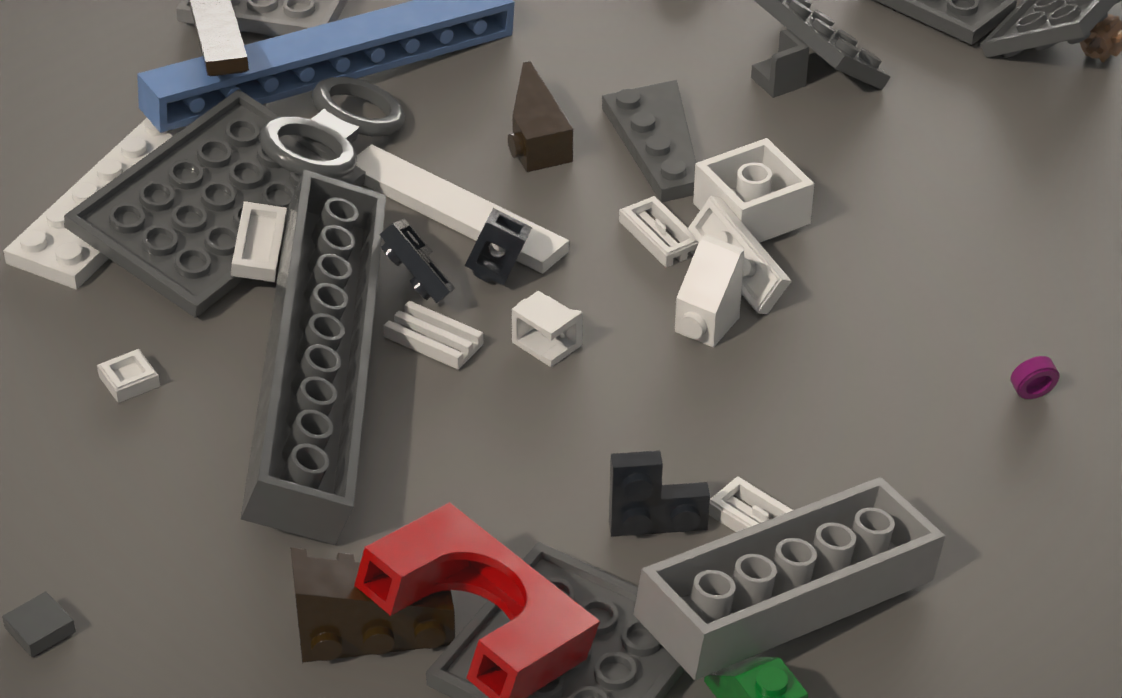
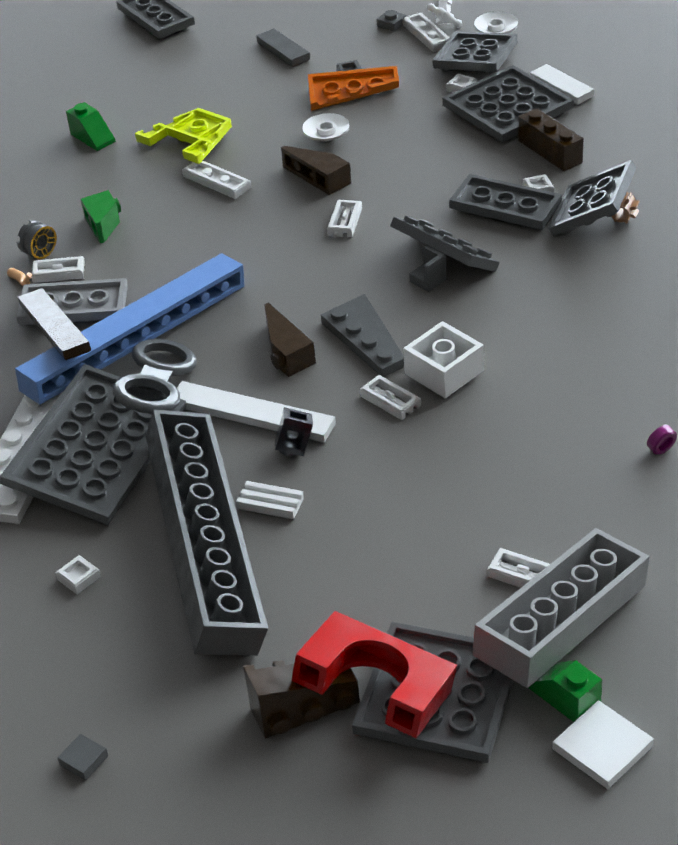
camera: 10 degrees left, 0 degrees up
(258, 241) = (134, 464): white tile -> none
(407, 247) = (235, 446): black plate -> none
(546, 328) = (342, 479): white window -> none
(645, 506) = (451, 579): black plate -> none
(710, 292) = (441, 430): white slope -> none
(762, 277) = (449, 402): white tile -> none

